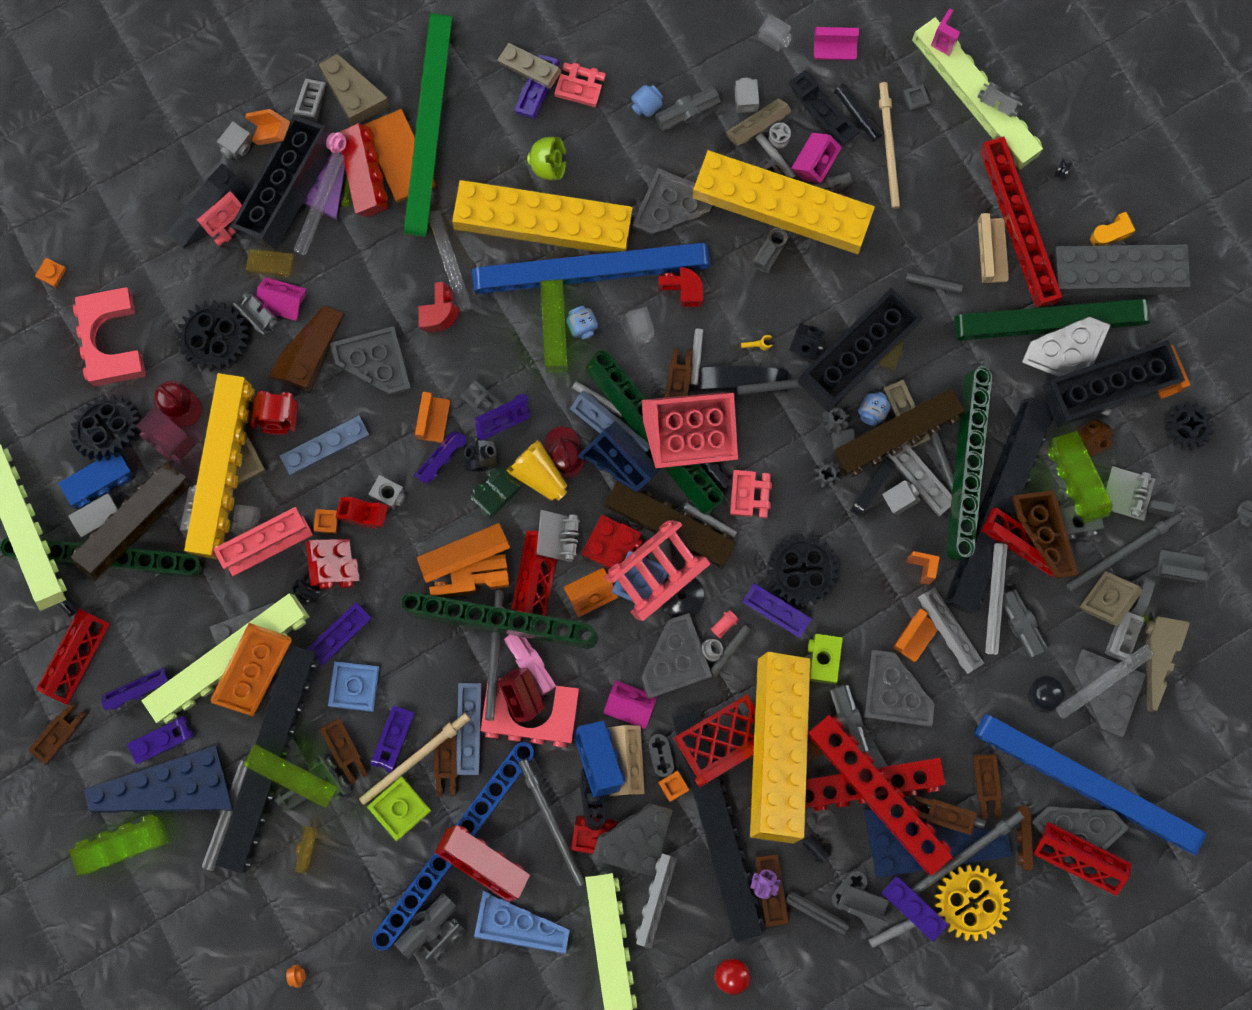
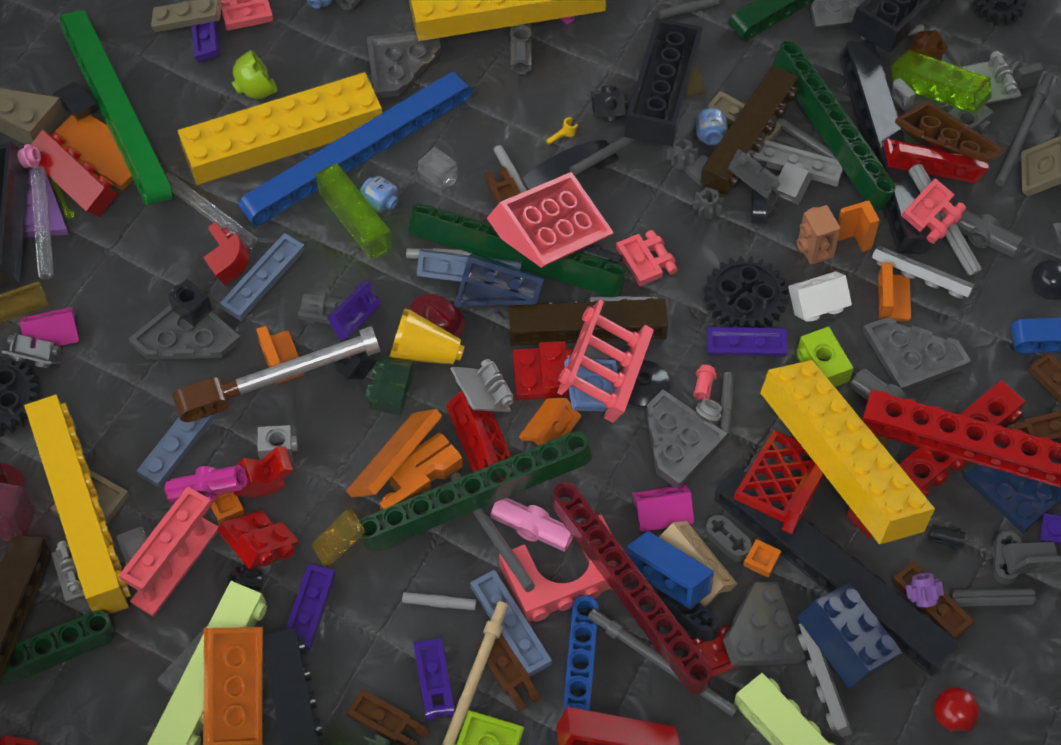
camera: 30 degrees left, 20 degrees down
(274, 413) = (107, 428): red brick -> none
(306, 353) = (108, 367): reddish brown wedge -> none
(318, 500) = (208, 482): none -> dark pink piece
(354, 686) = (357, 653): medium blue tile -> none
(362, 431) = (212, 396): none -> piece
(387, 595) = (338, 537): none -> clear yellow plate
(390, 349) = (190, 311): none -> black brick
(402, 101) = (76, 100): none -> black slope
(431, 681) = (439, 601): none -> light grey piece
(440, 457) = (311, 383): dark purple plate -> none
(456, 344) = (262, 276): none -> sand blue plate
(521, 694) = (546, 550): dark red brick -> none
(555, 747) = (631, 598): none -> dark red beam
(689, 285) = (459, 114): red brick -> none
(689, 884) = (849, 635): none -> dark blue brick
(855, 606) = (820, 296): none -> white brick
(870, 477) = (753, 173): none -> dark grey hinge
(888, 555) = (818, 234): none -> nougat brick
(985, 585) = (928, 205): none -> coral plate
(1046, 466) = (902, 95): none -> light grey tile

